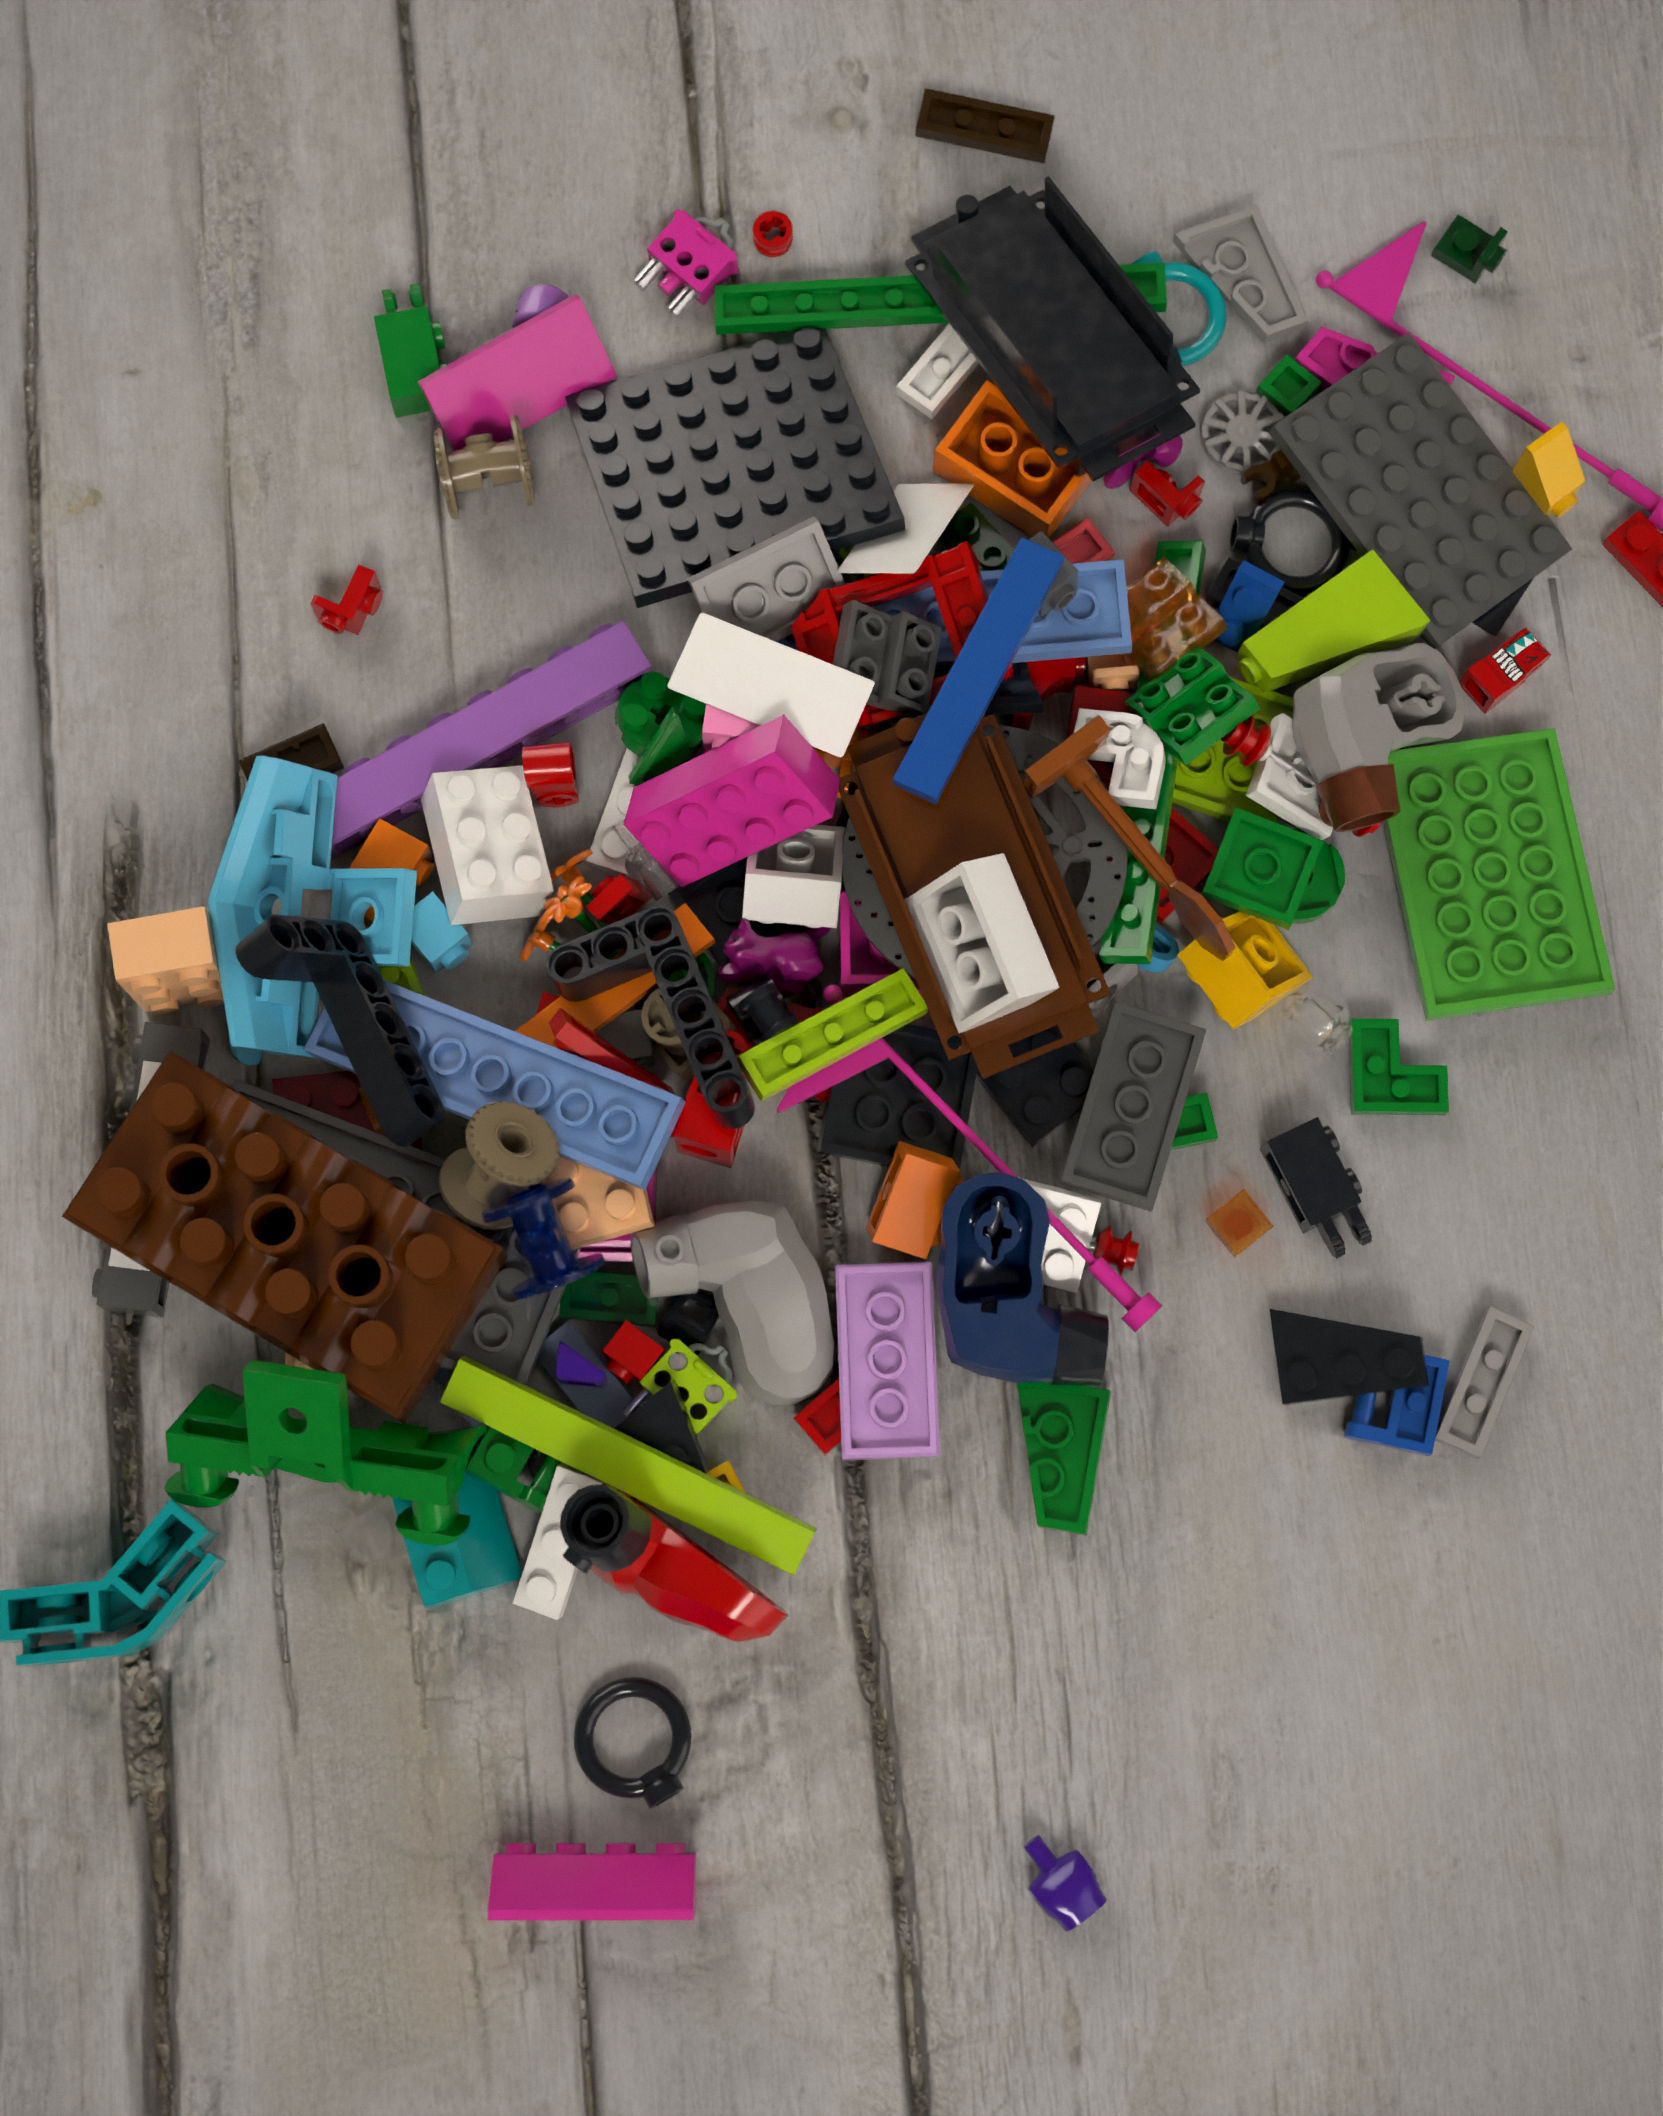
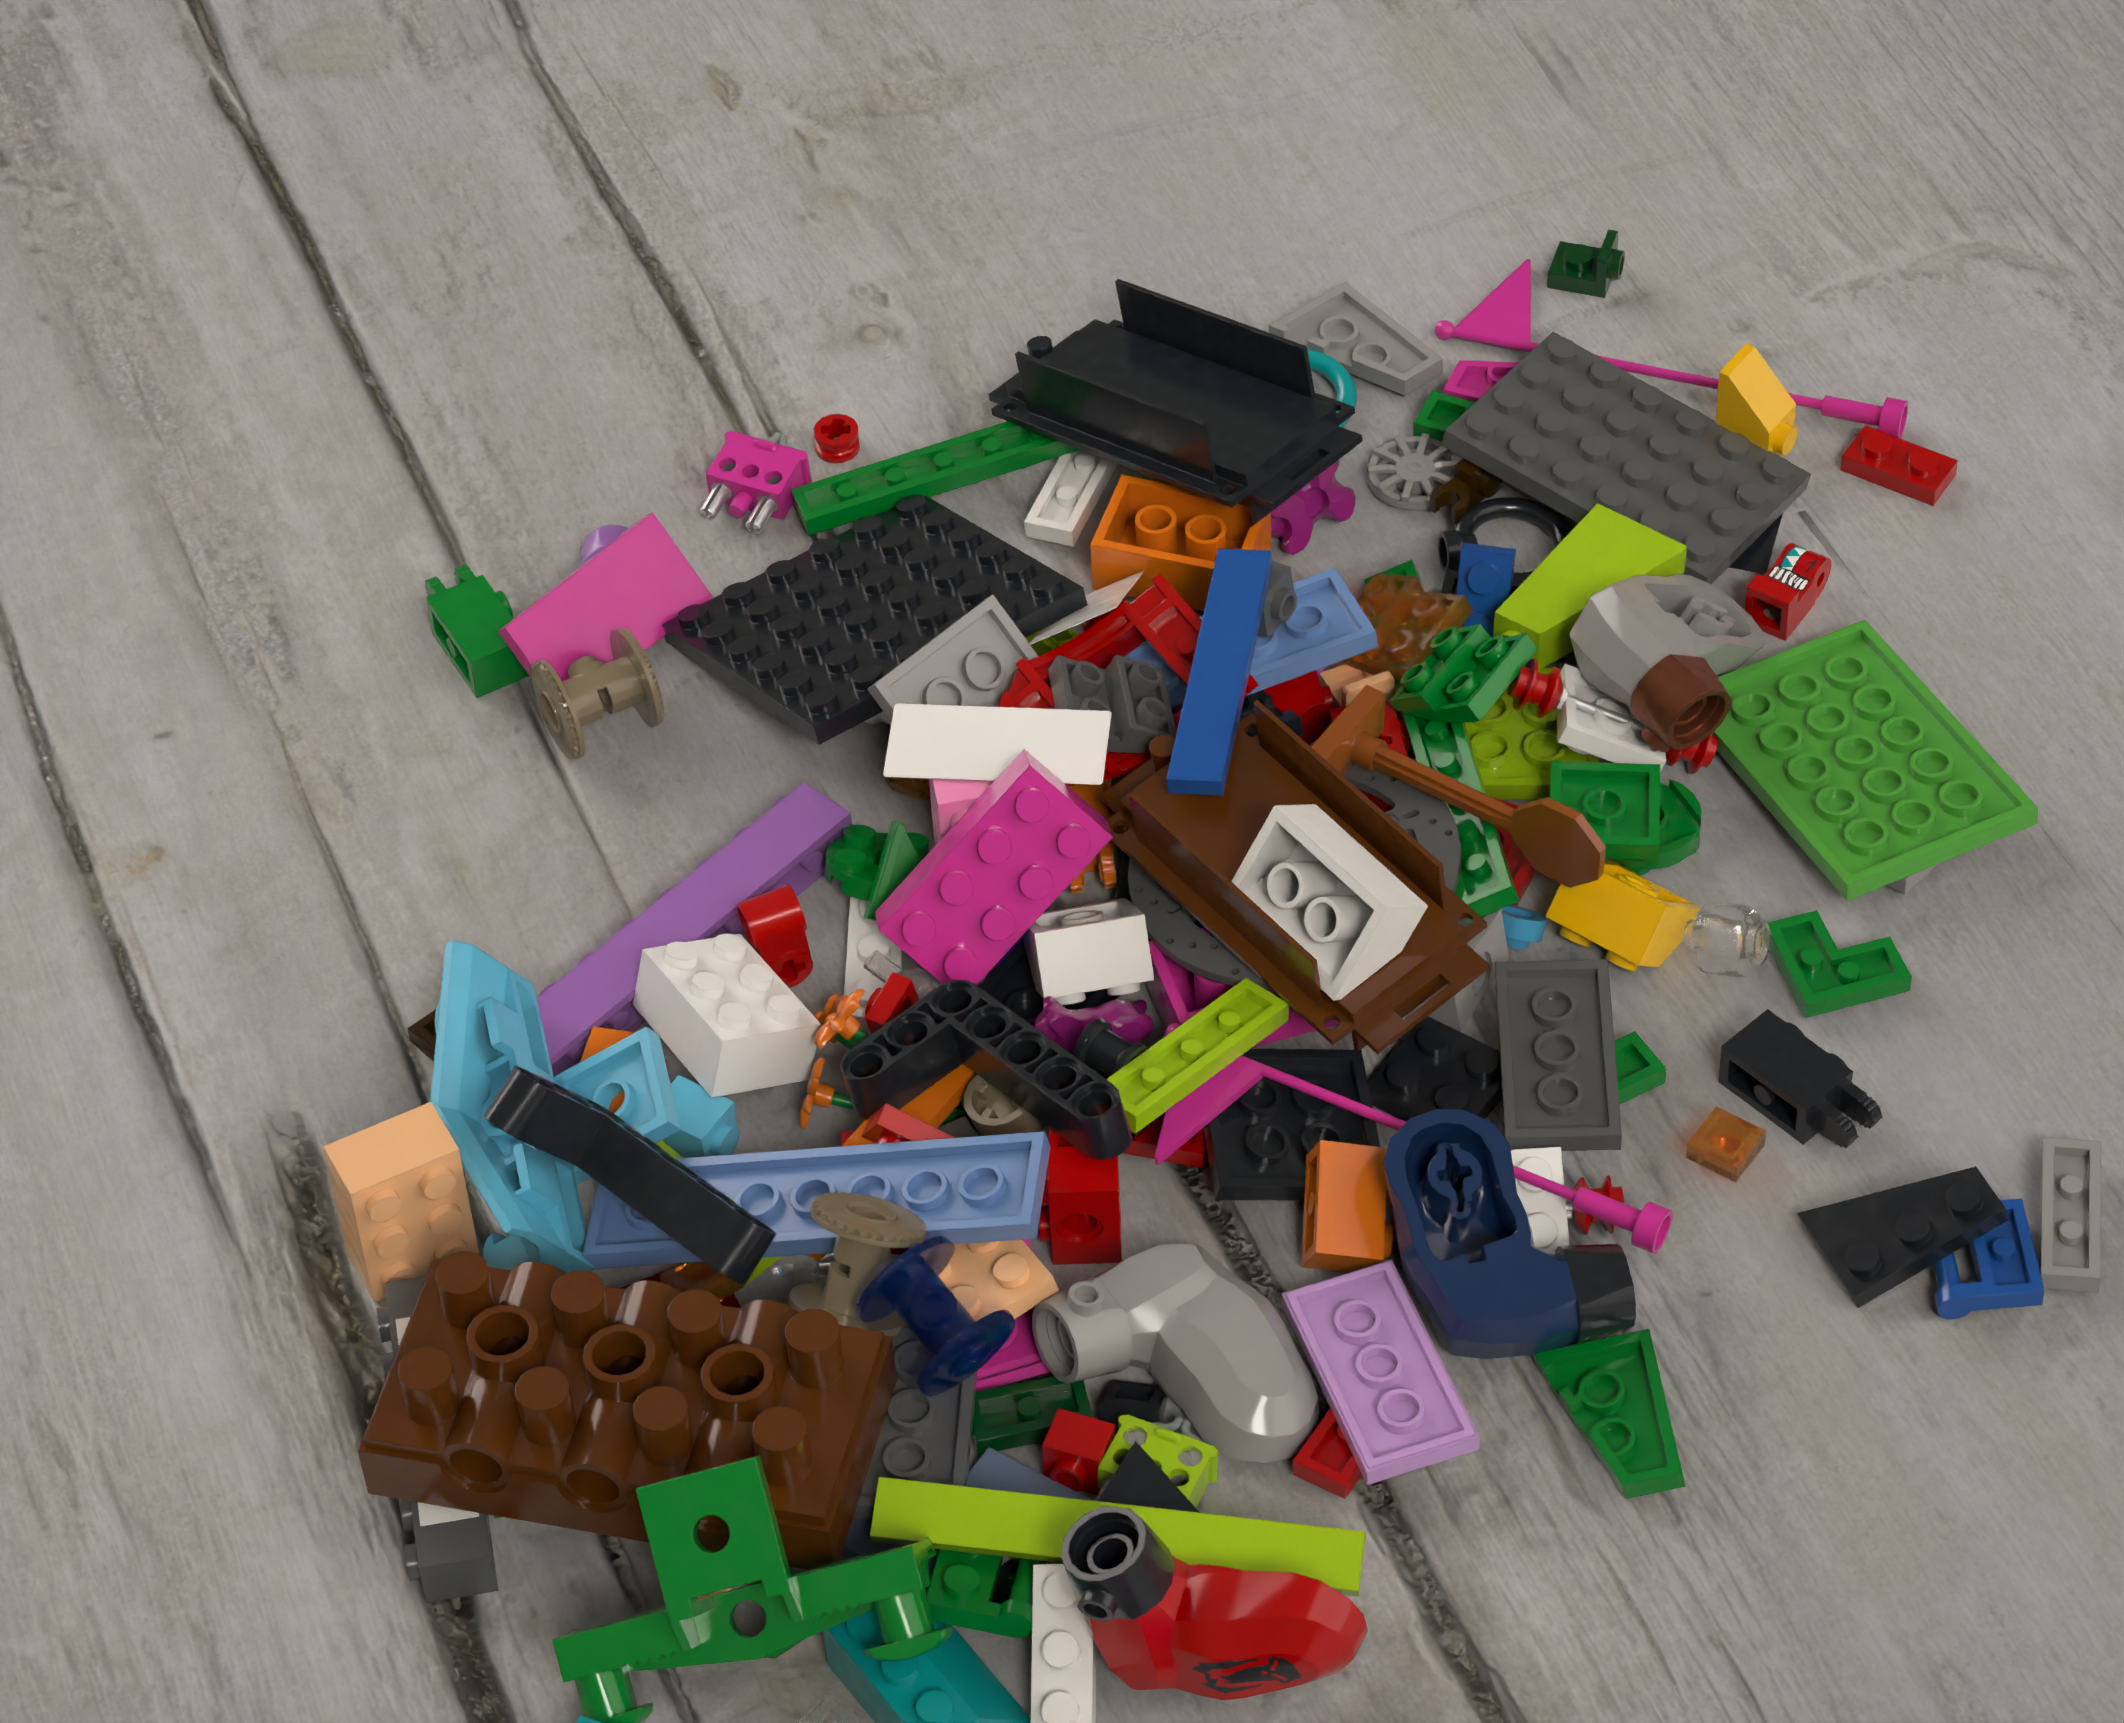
camera: 10 degrees left, 30 degrees down
(359, 600) = (487, 868): red bracket -> none
(577, 1370) = (1023, 1469): dark purple slope -> none
(984, 125) = (1029, 294): dark brown plate -> none
(1136, 757) = (1423, 735): white plate -> none
(1160, 493) = (1353, 539): red bracket -> none

